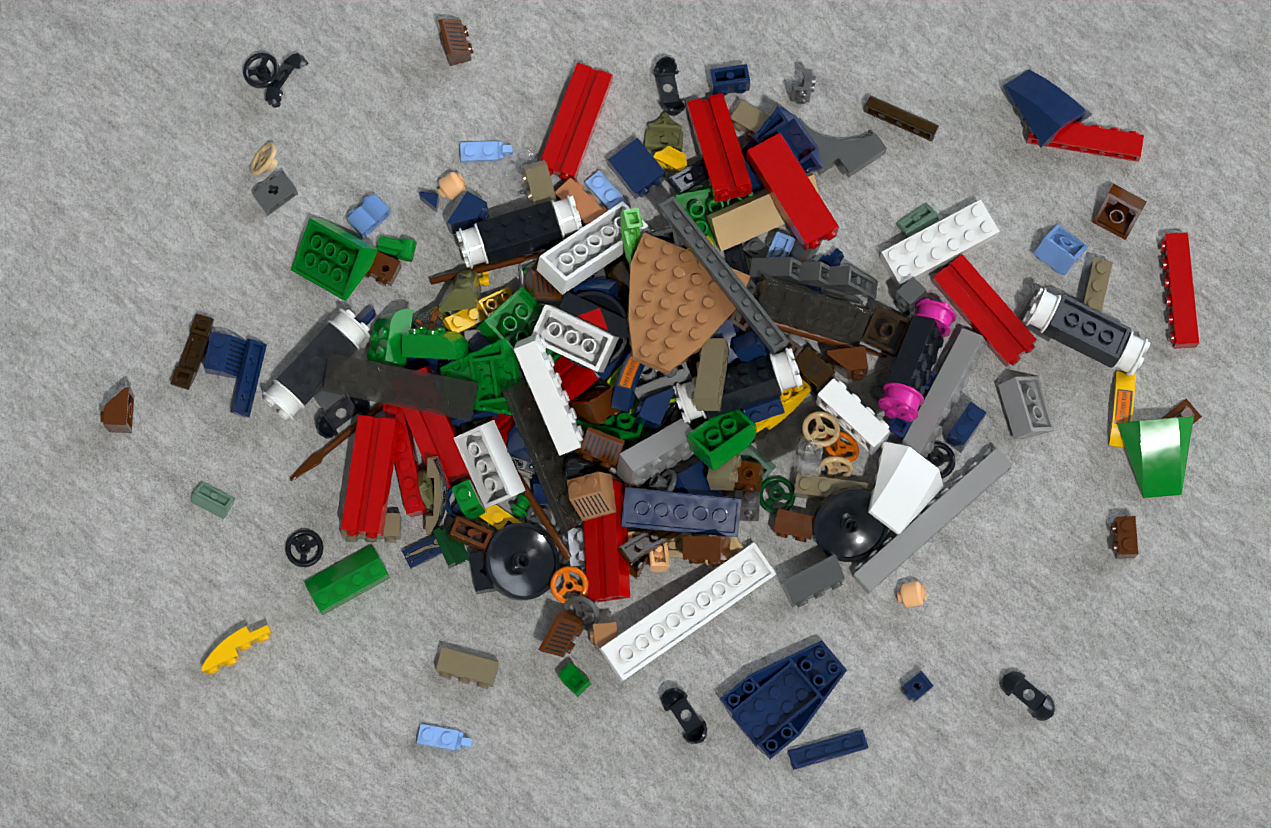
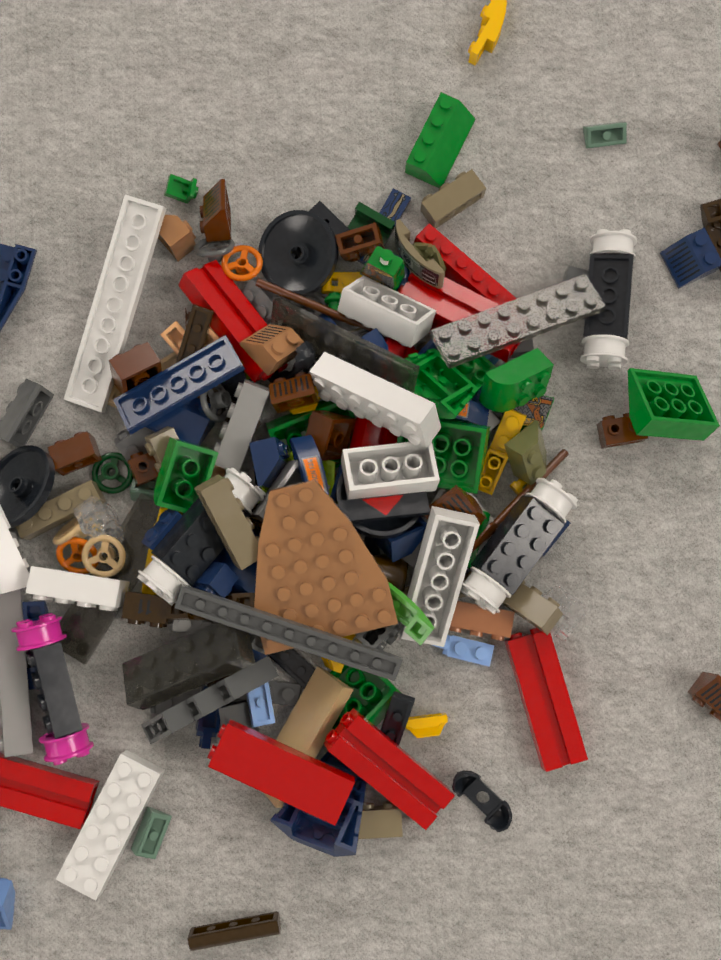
camera: 140 degrees right, 5 degrees up
(248, 378) = (657, 252): dark blue plate -> none
(298, 543) = (499, 136): black piece -> none
(317, 457) = (544, 228): reddish brown piece -> none
(328, 423) = (557, 260): black piece -> none
(366, 315) = (598, 378): dark blue slope -> none
(368, 215) = (667, 471): medium blue brick -> none
(370, 476) = (485, 228): red brick -> none
(387, 337) = (567, 375): green brick -> none
(402, 249) = (614, 461): green piece -> none
(430, 199) = (621, 526): dark blue slope -> none
(442, 738) = (261, 71): light blue hinge -> none
(452, 185) = (613, 553): light nougat head -> none
(467, 668) = (281, 138): dark tan brick -> none
(468, 212) = (580, 534): dark blue slope -> none
(484, 151) = (609, 609): light blue hinge -> none
(636, 169) = (454, 693): dark blue brick -> none
(664, 133) = (453, 746): olive slope -> none
(676, 701) = (46, 218): black piece -> none
(730, 80) = (428, 849): dark blue brick -> none
(802, 94) = (349, 902): flat silver bracket -> none
(820, 338) = (172, 637): reddish brown piece -> none
(849, 362) = (118, 642): reddish brown slope -> none
(850, 155) = (262, 853): dark grey arch -> none
(885, 331) = (104, 698): dark brown brick -> none
(909, 295) = (103, 749): dark grey brick -> none

